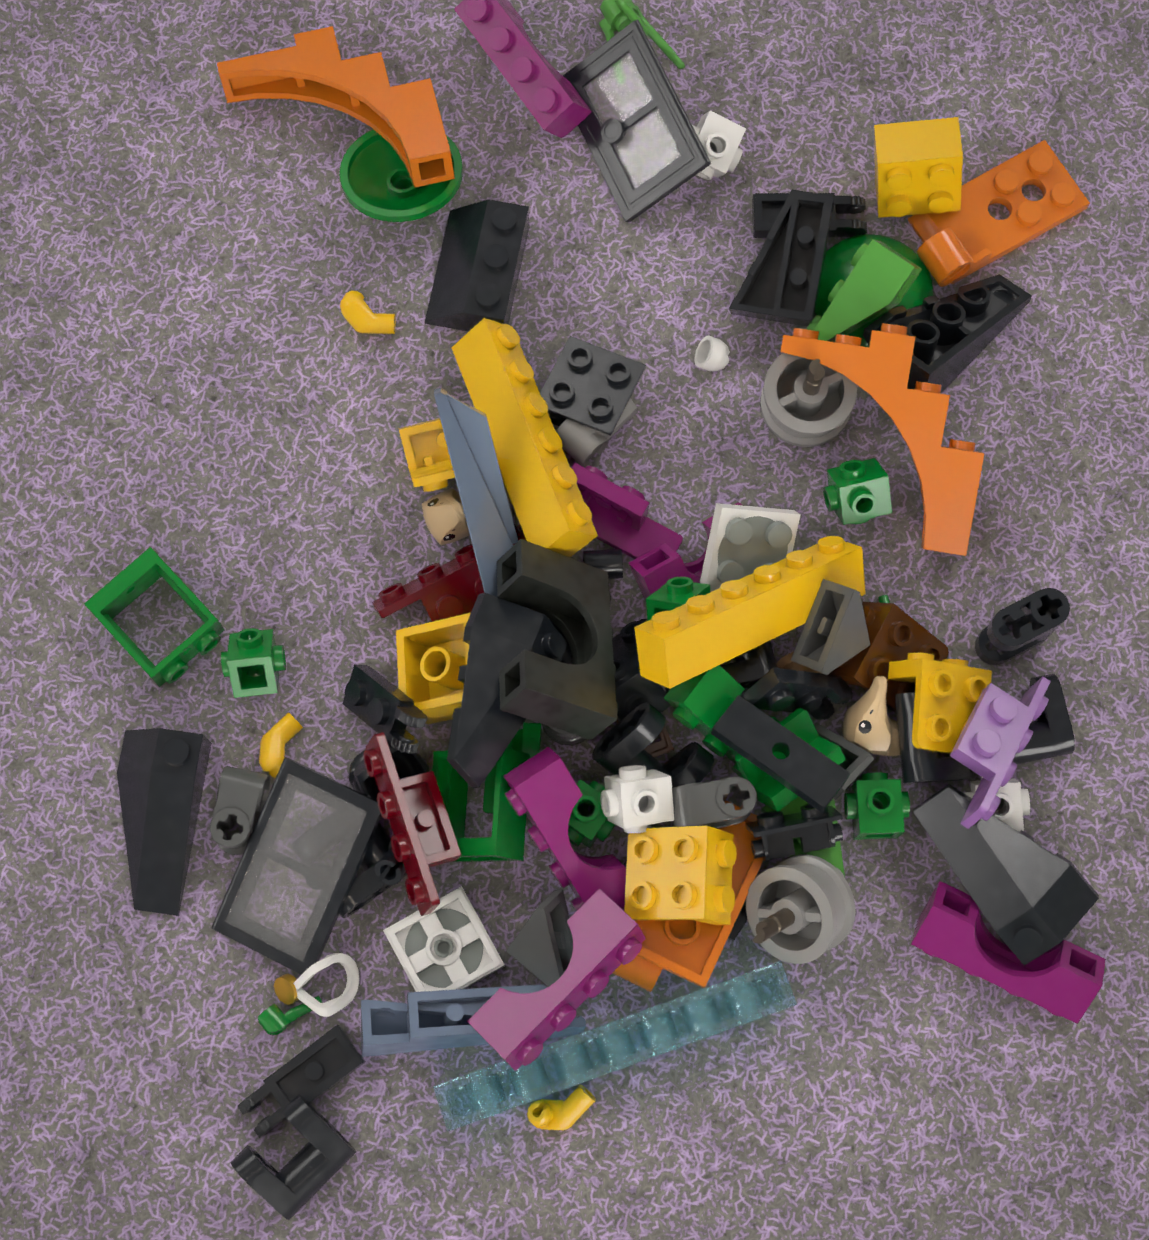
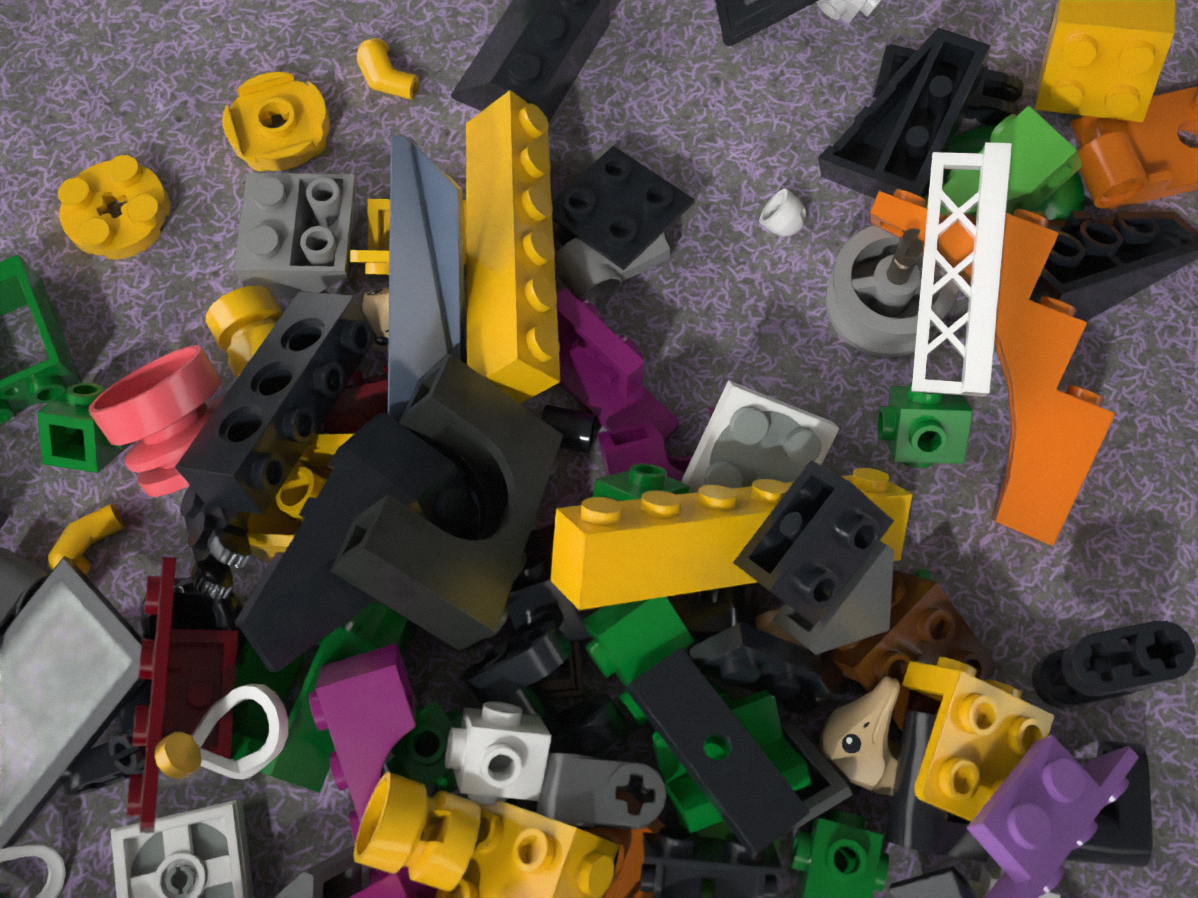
camera: 20 degrees right, 5 degrees down
(195, 463) = (97, 188): none -> yellow plate
(303, 360) = (279, 147): none -> yellow plate
(325, 639) = (162, 408): none -> coral wheel
(345, 555) = (242, 323): none -> yellow wheel
(355, 471) = (295, 231): none -> light grey slope
(403, 603) = (277, 403): none -> black brick
(437, 853) = (181, 754): none -> white piece
(606, 859) = (395, 823): none -> yellow wheel
(805, 600) = (814, 541): none -> black brick
(871, 379) = (985, 270): none -> white fence

